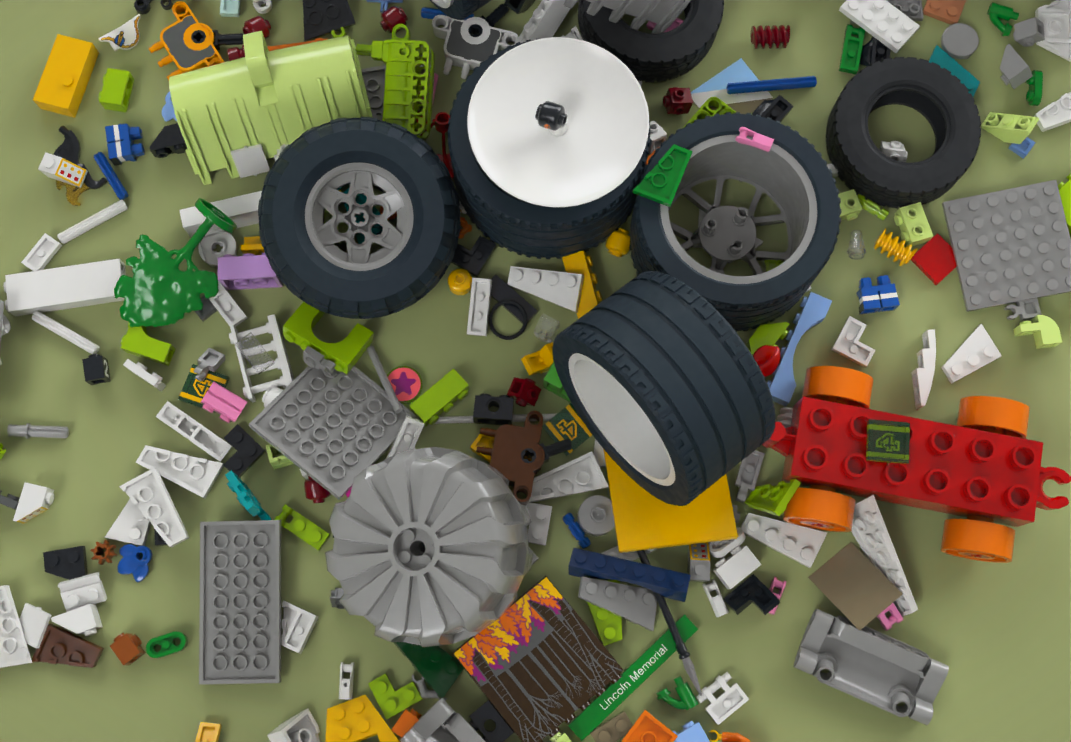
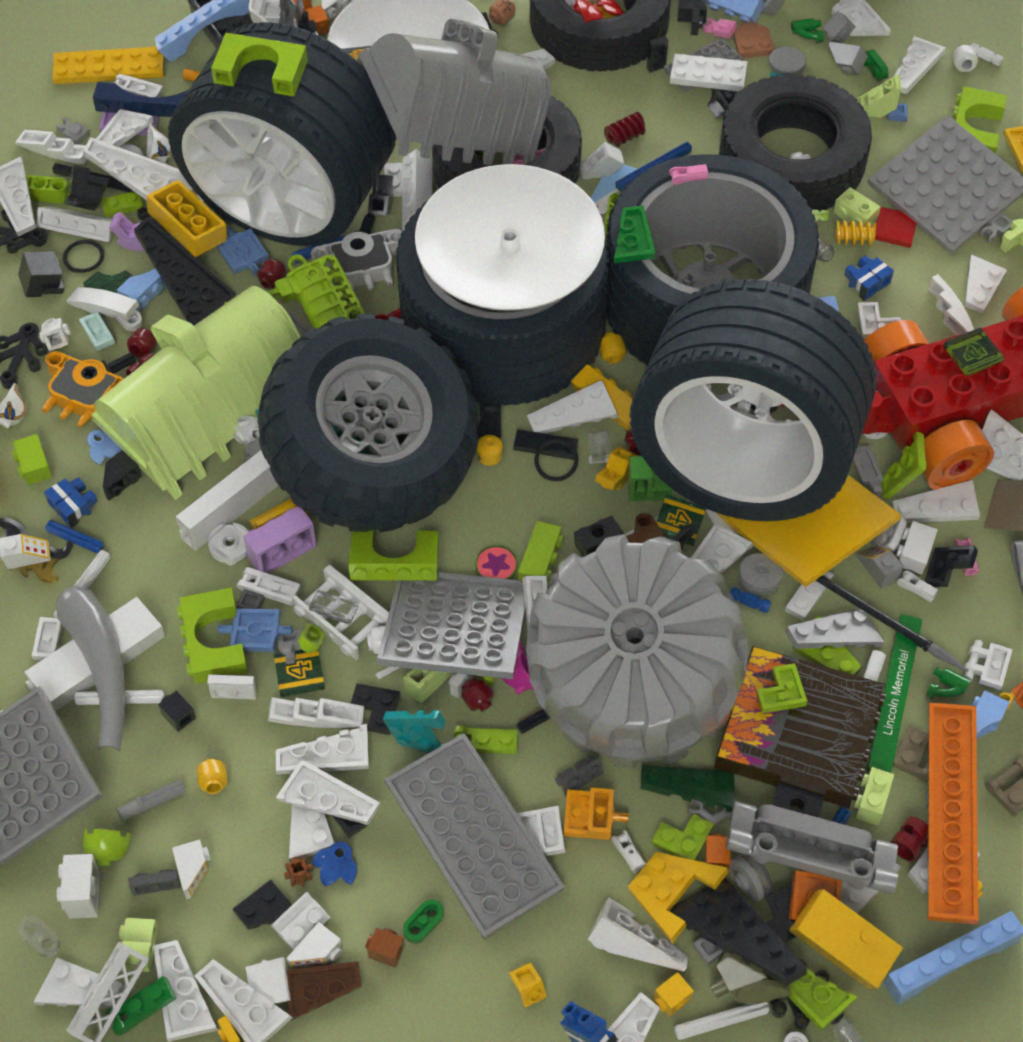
camera: 30 degrees left, 20 degrees down
(70, 276) = (96, 638): none -> light grey animal
(89, 438) = (212, 776): none -> yellow head
(158, 289) = (203, 596): green plant -> none
(192, 336) = (256, 629): none -> medium blue plate
(223, 402) = (331, 668): bright pink brick -> none
(224, 368) = (311, 638): none -> lime plate
(250, 160) = (213, 449): white piece -> none
(316, 359) = (400, 578): light grey plate -> none
(337, 635) = (591, 814): none -> light orange plate
(384, 379) = (476, 567): light grey bar -> none
(479, 306) = (522, 461): white plate -> none
(524, 391) = (618, 506): dark red brick -> none
(540, 636) = (786, 694): none -> lime plate
(551, 115) = (503, 229): black head -> none
(600, 566) = (867, 588): dark blue arch -> none
(629, 648) = (874, 665): none -> white bar
(728, 58) = (602, 162): none -> white slope
(851, 49) = (702, 108): green plate -> none

